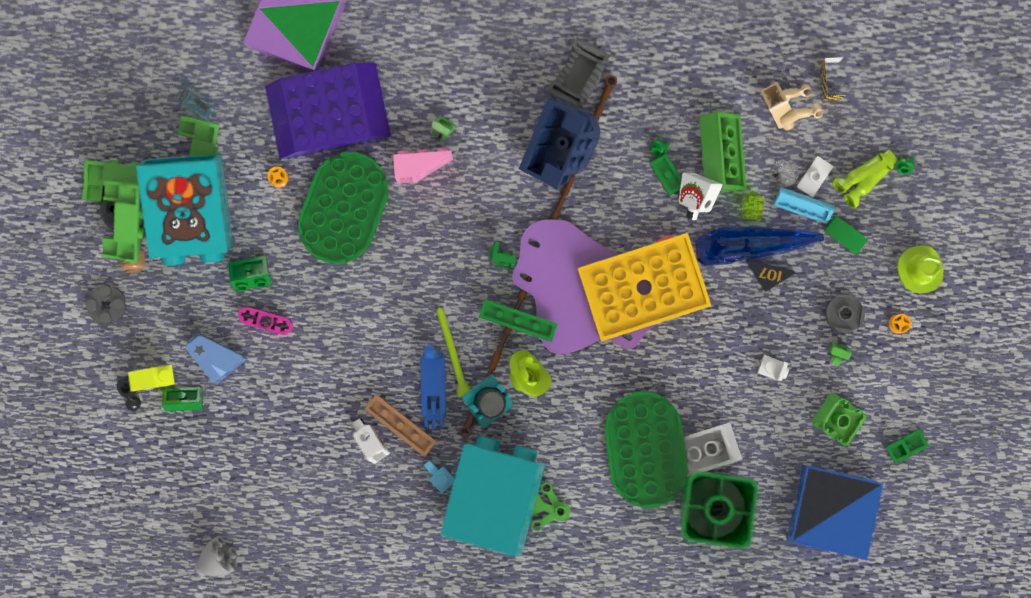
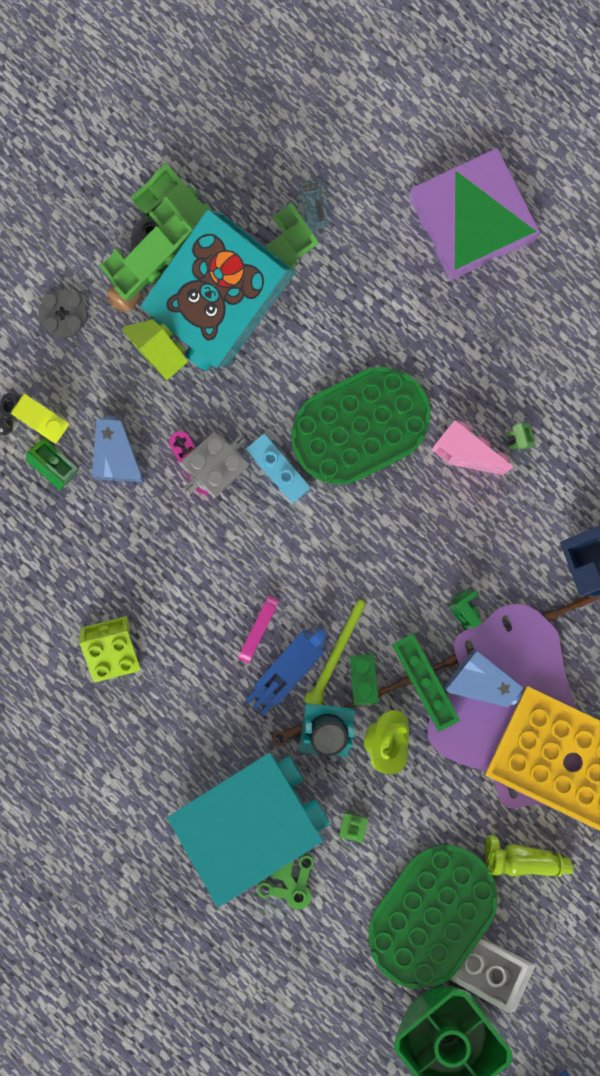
camera: 45 degrees right, 0 degrees up
(181, 272) = (157, 347): none -> lime slope
(249, 273) = (218, 406): green bracket -> none
(275, 174) = (328, 337): light orange wheel -> none
(279, 310) = (214, 465): none -> light grey plate
(318, 277) = (278, 468): none -> medium azure plate
(318, 474) = (109, 649): none -> lime bracket
(327, 109) = (430, 321): dark purple slope -> none
(374, 447) = (182, 675): white torso -> none
(395, 384) = (258, 629): none -> dark pink beam
(400, 425) = (225, 676): medium nougat plate -> none
(440, 477) = (216, 759): medium azure plate -> none
(482, 352) = (364, 680): none -> green plate
(550, 288) = (483, 681): none -> medium blue slope
(555, 442) = (353, 827): none -> bright green tile
(667, 369) = (522, 860): none -> lime piece

